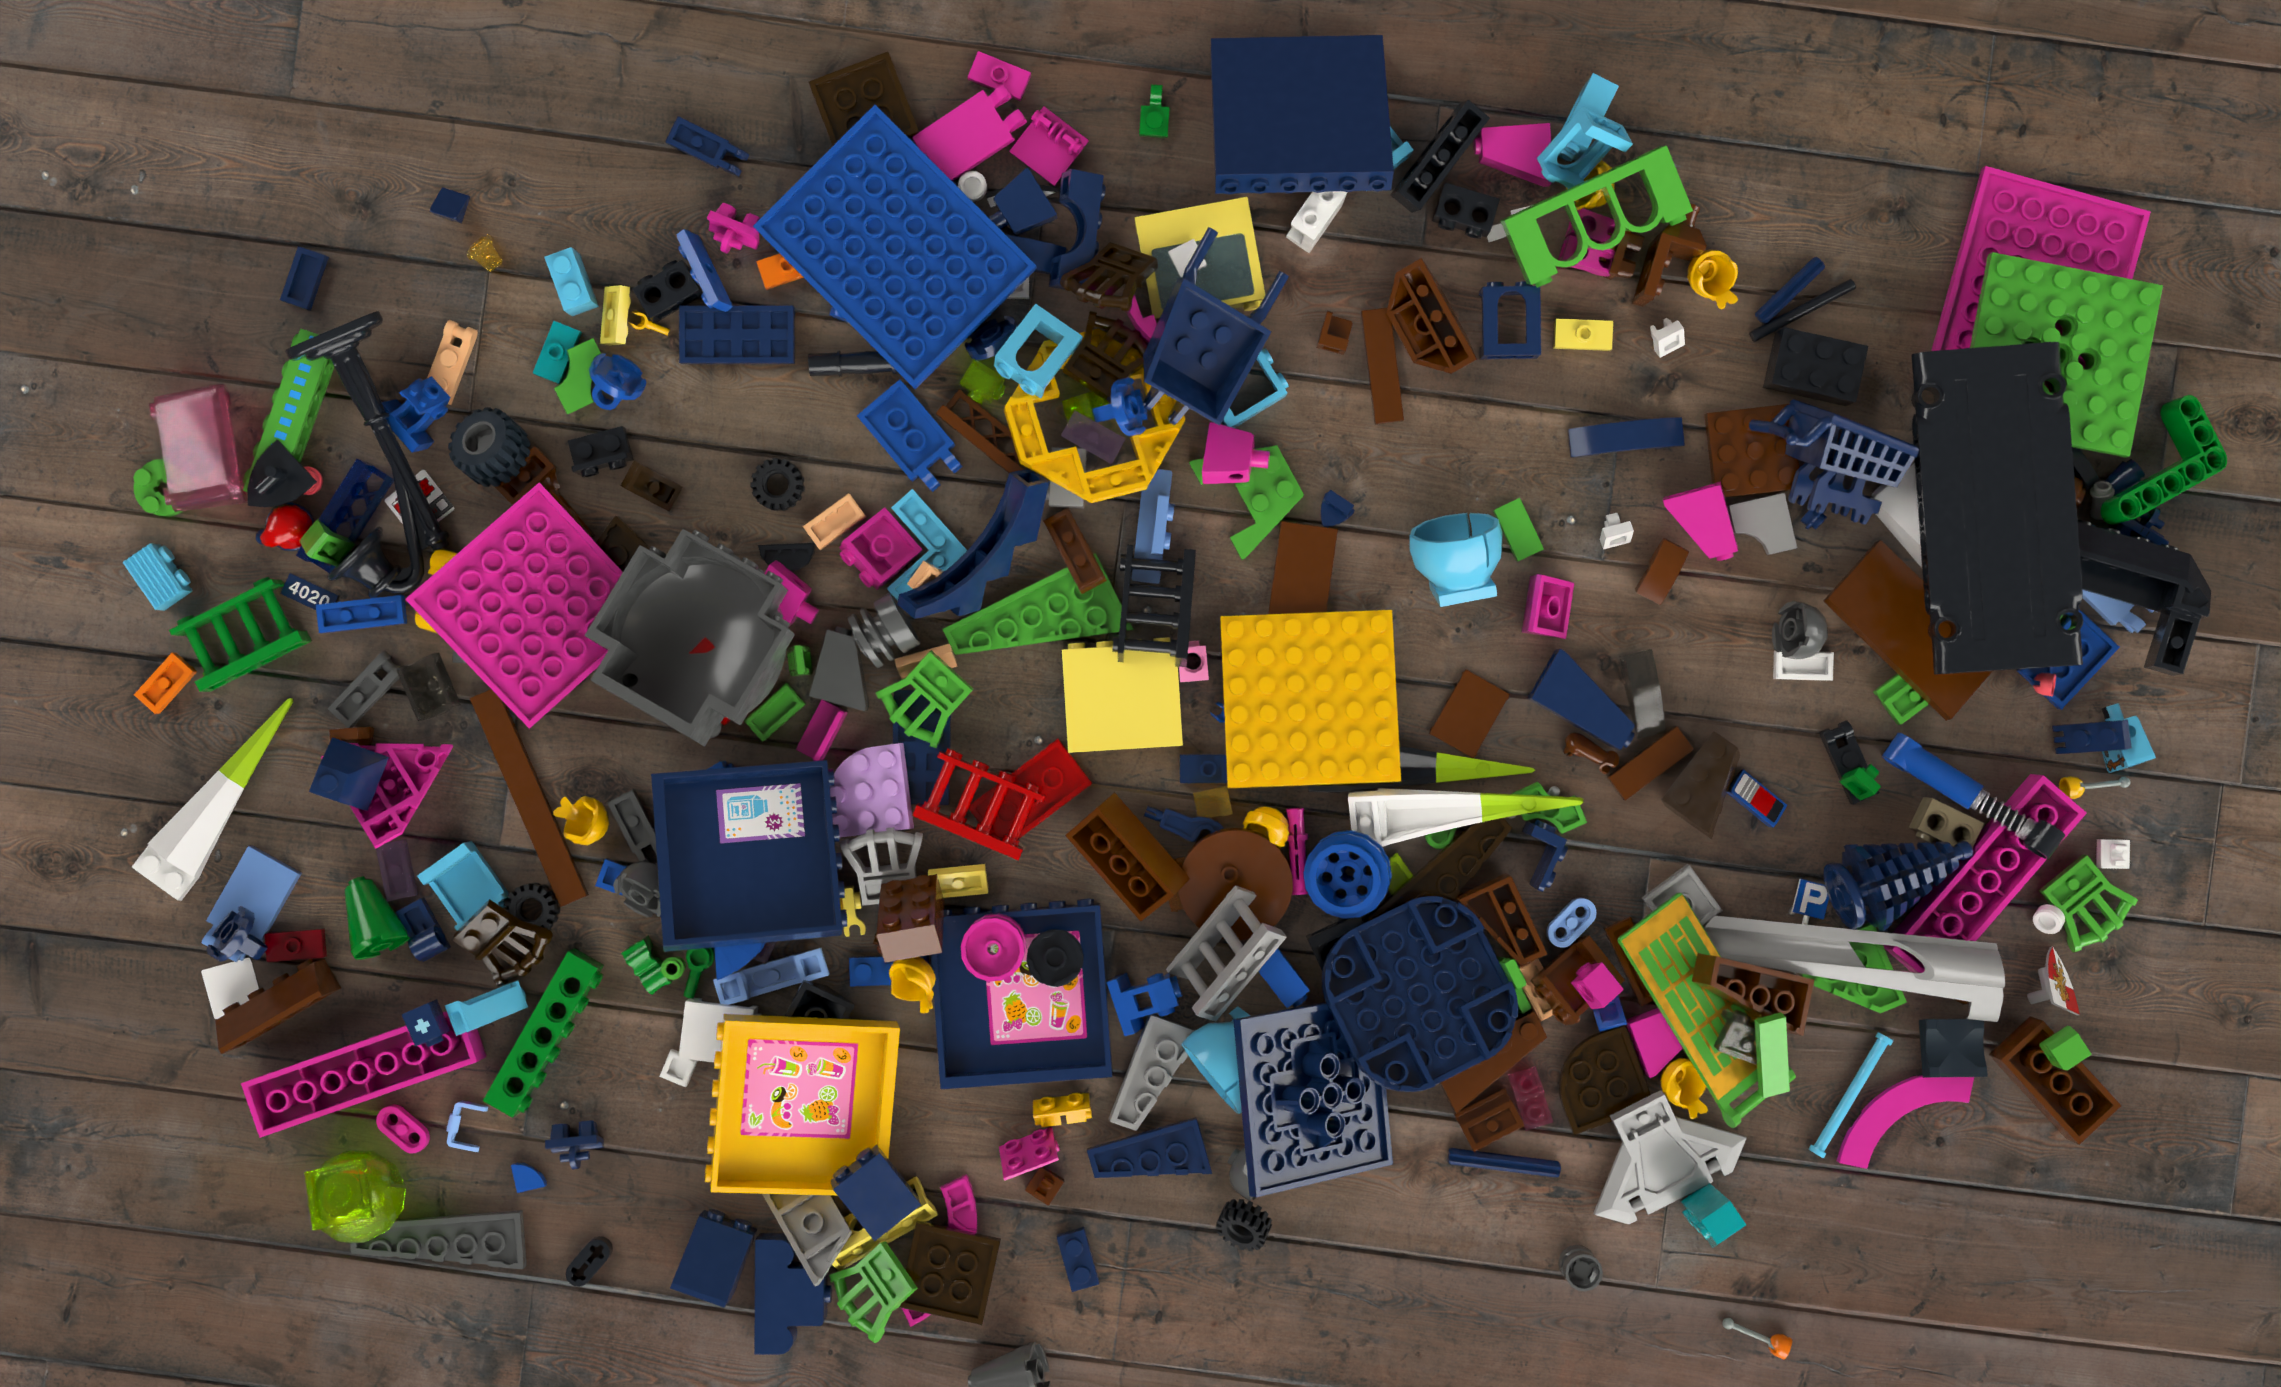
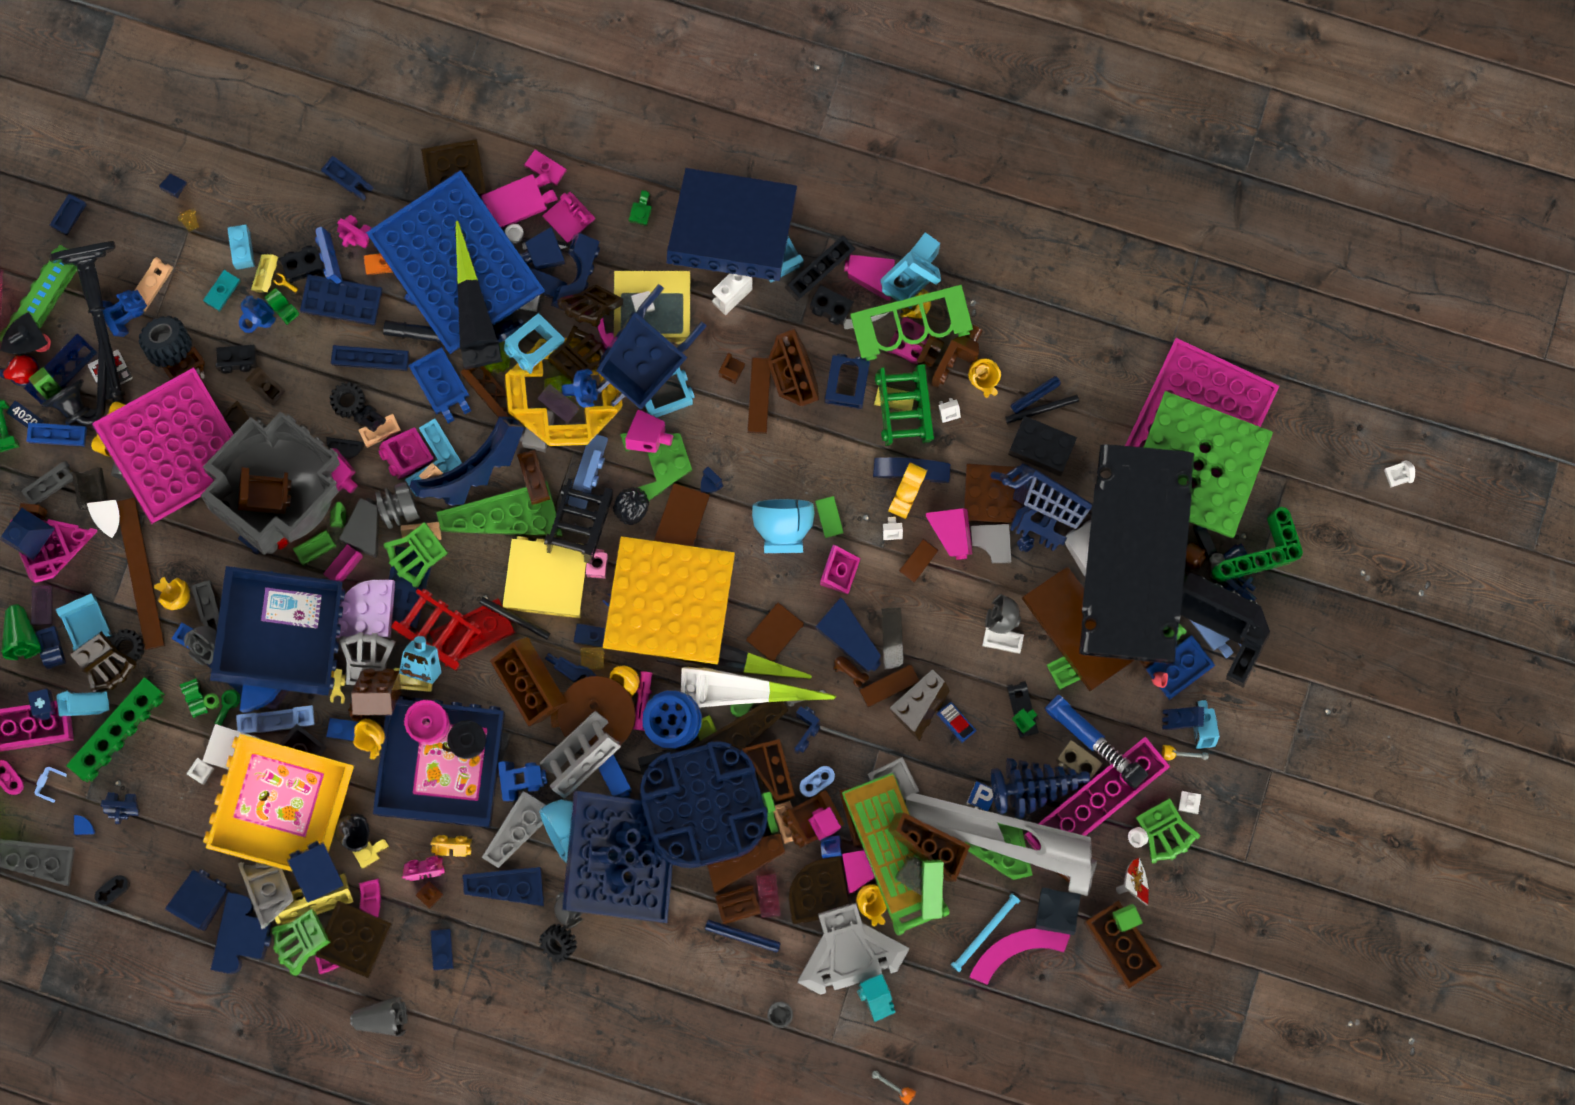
camera: 10 degrees right, 10 degrees down
(459, 722) = (105, 515): none -> white sticker
(576, 387) = (229, 314): bright green tile -> none
(650, 360) = (281, 306): none -> green leg
(684, 652) = (263, 493): none -> reddish brown panel
(797, 415) = (370, 358): none -> dark blue plate
(811, 501) = (368, 414): none -> black piece
(917, 1120) = (353, 832): none -> black hair
(945, 1142) = (369, 854): none -> light yellow plate
(949, 350) = (476, 332): none -> black plate
(966, 858) = (420, 661): none -> medium azure torso
(1088, 764) = (515, 618): none -> black bar
(1226, 566) = (631, 505): none -> black hair
(1563, 818) = (824, 708): bright green tile -> none
(1623, 323) = (919, 394): none -> green fence
(1630, 471) = (907, 490): none -> yellow piece

